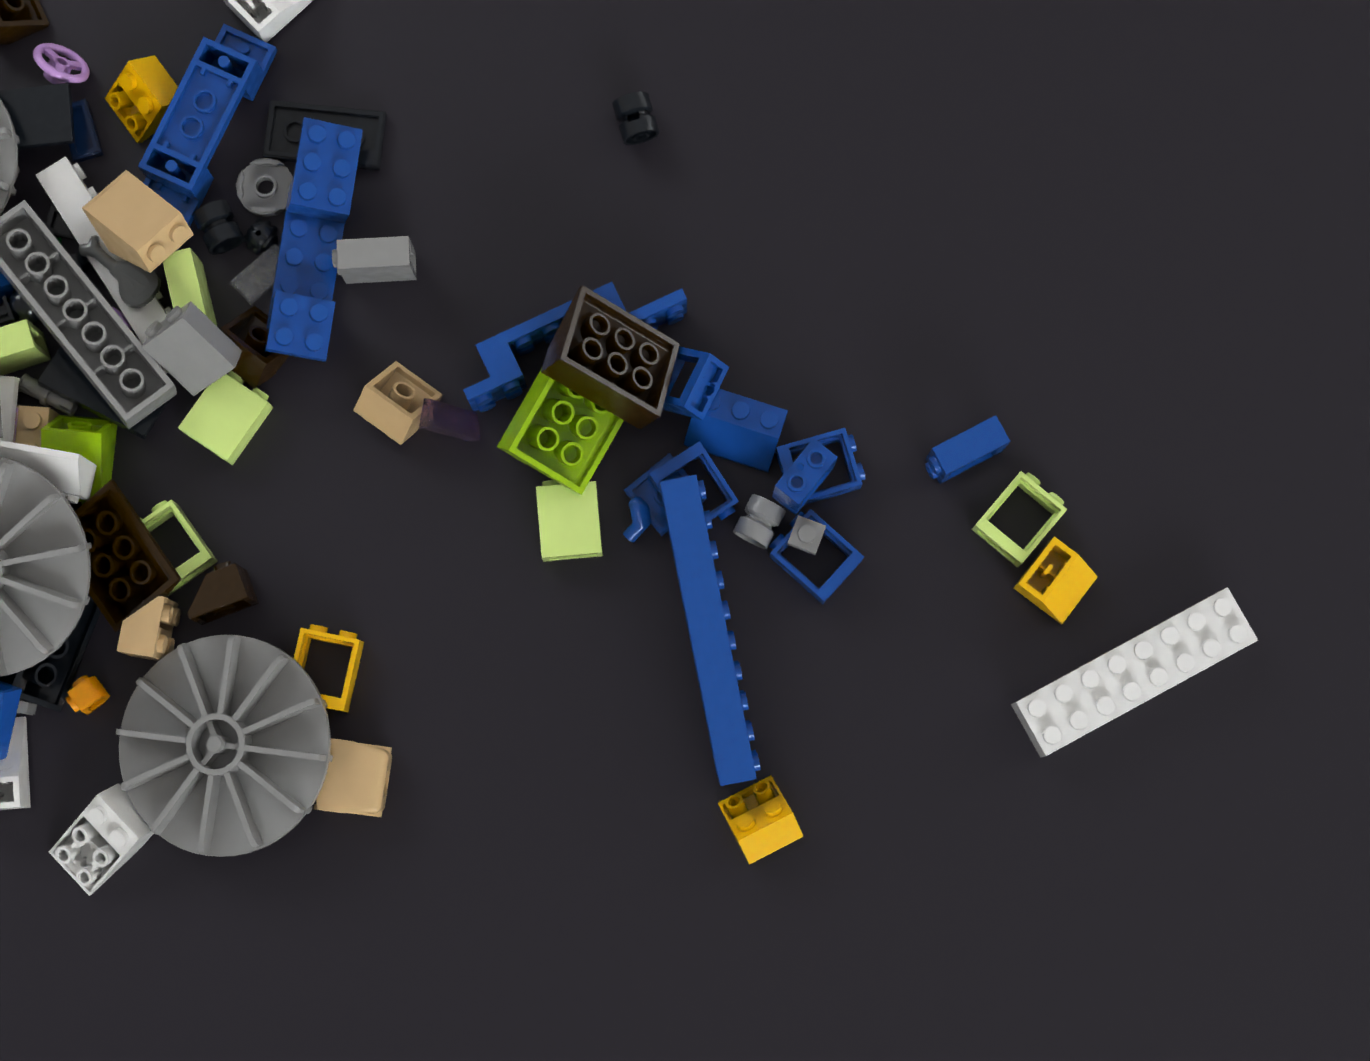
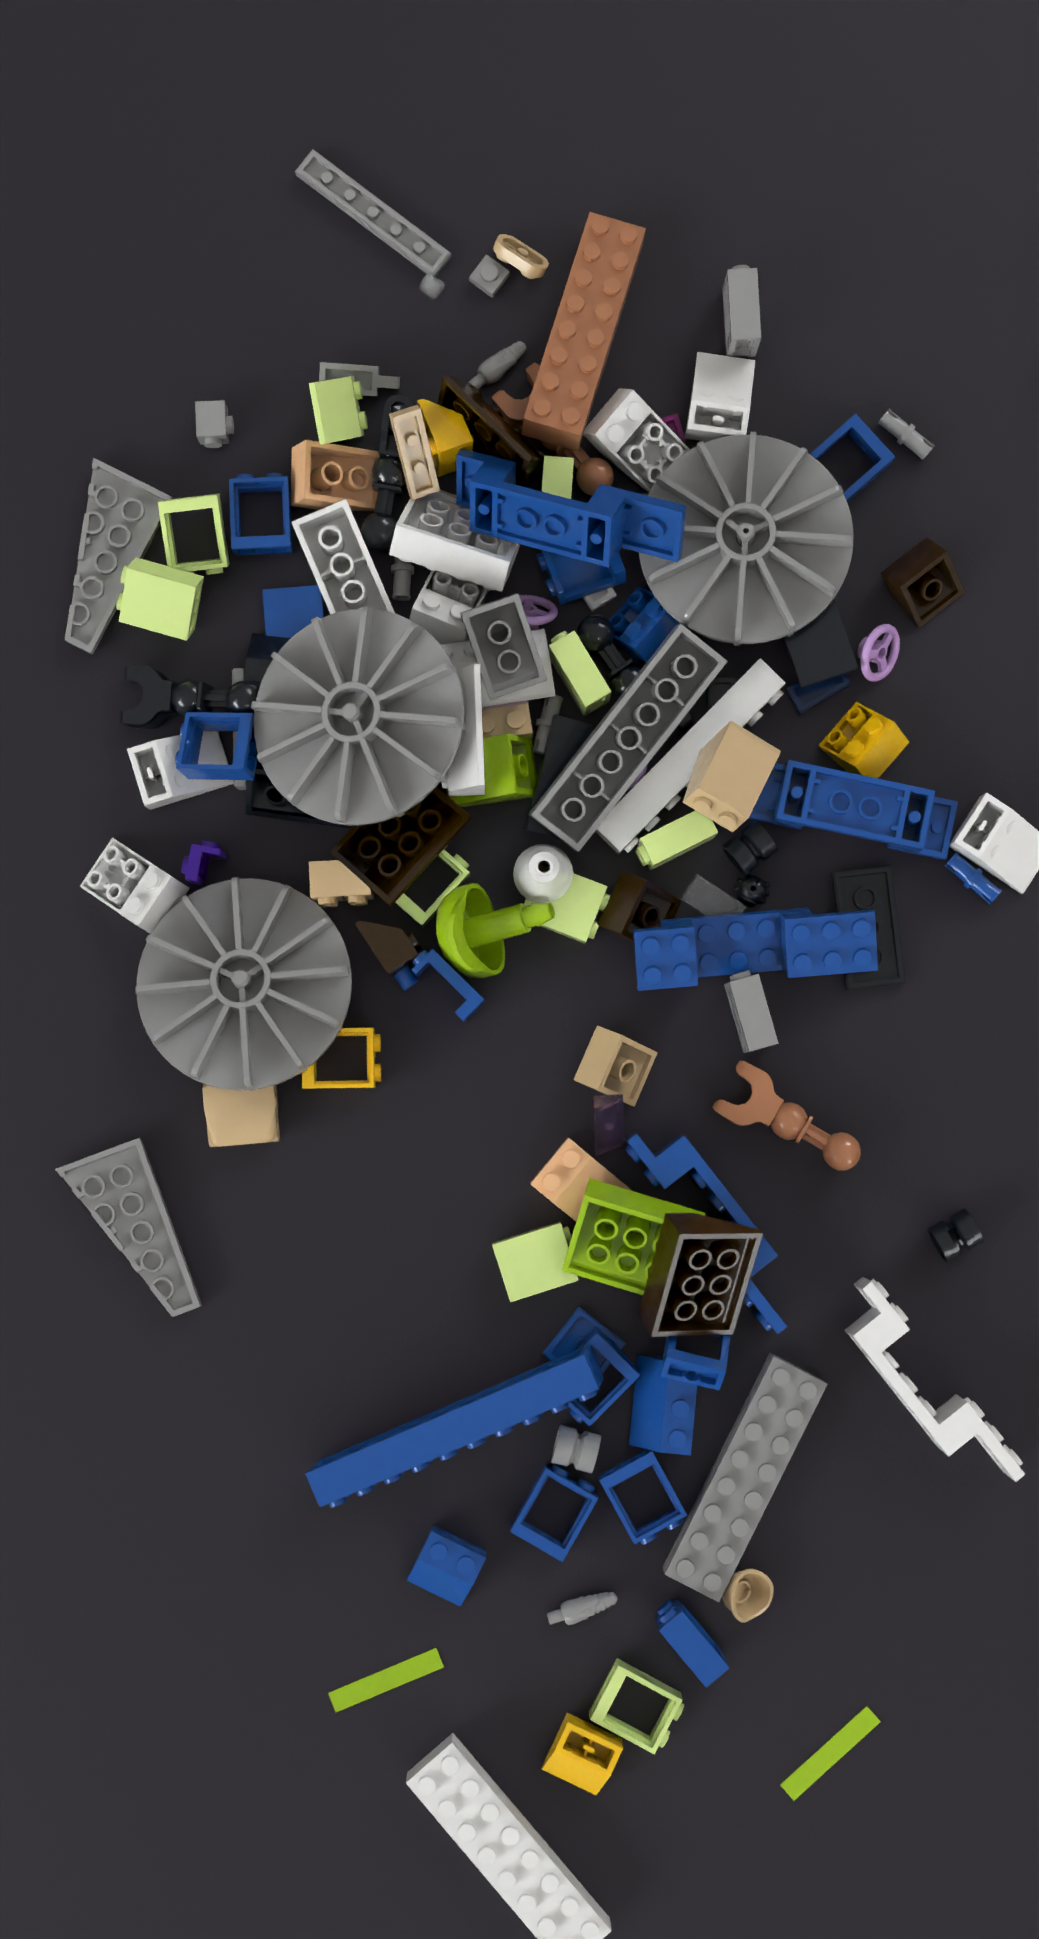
camera: 75 degrees right, 5 degrees up
(83, 758) = (196, 864): none -> dark purple bracket
(87, 694) = (266, 836): light orange plate -> none
(135, 284) = (671, 784): dark grey piece -> none
(189, 427) = (541, 886): none -> white cone
(191, 348) = (618, 859): light grey brick -> none
(230, 509) = (474, 933): none -> lime piece
(250, 179) = (806, 865): light grey tile -> none
(262, 587) = (406, 978): none -> blue piece
(272, 538) = (433, 959): none -> blue panel
(301, 27) = (973, 878): none -> blue pin
(420, 913) = (130, 1209): none -> light grey wing
(489, 250) = (787, 1119): none -> nougat piece
(495, 472) = (567, 1175): none -> light nougat slope
(640, 519) = (552, 1331): blue arm -> none
(760, 819) = (286, 1513): yellow slope -> none
(804, 476) = (632, 1498): blue window -> none
(806, 535) = (570, 1501): light grey plate -> none
(814, 170) = (952, 1422): none -> white bracket
(820, 366) = (744, 1477): none -> light grey brick
(847, 673) = (447, 1565): none -> blue slope
(915, 552) = (581, 1608): none -> light grey piece
(933, 387) = (748, 1594): none -> tan helmet
(946, 759) = (386, 1680): none -> lime sticker
(1103, 347) = (830, 1753): none -> lime sticker

